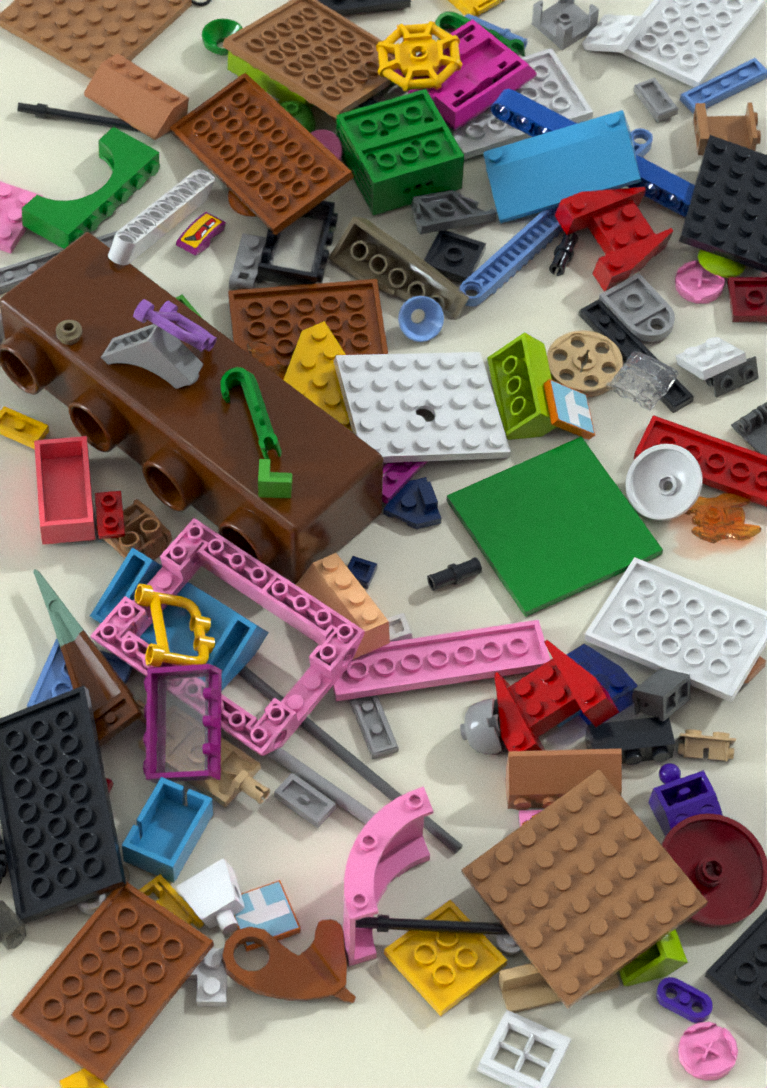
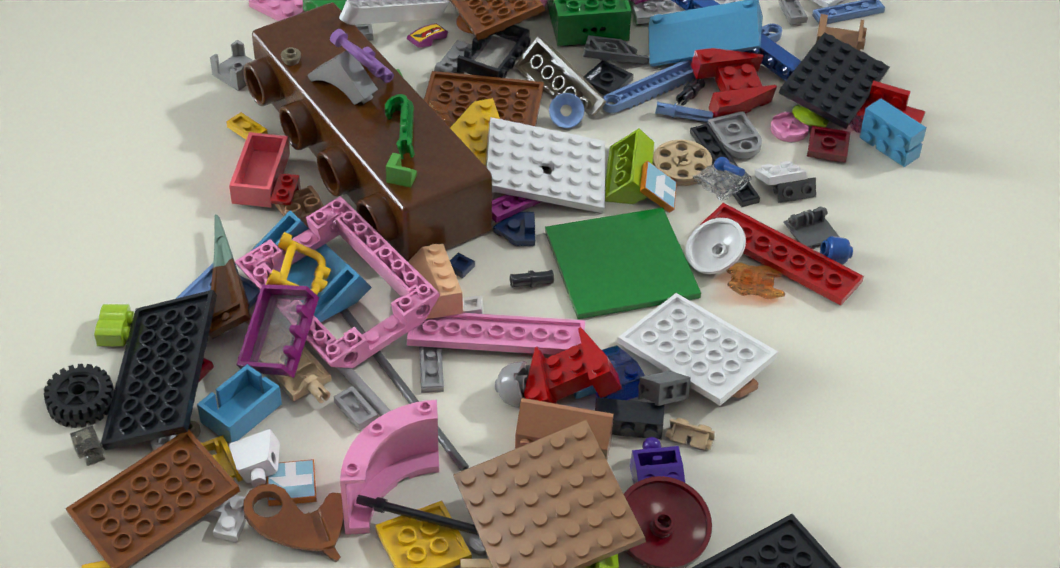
camera: 15 degrees right, 10 degrees down
(554, 288) = (683, 112): none -> medium blue axle
(641, 363) = (723, 164): none -> blue bar

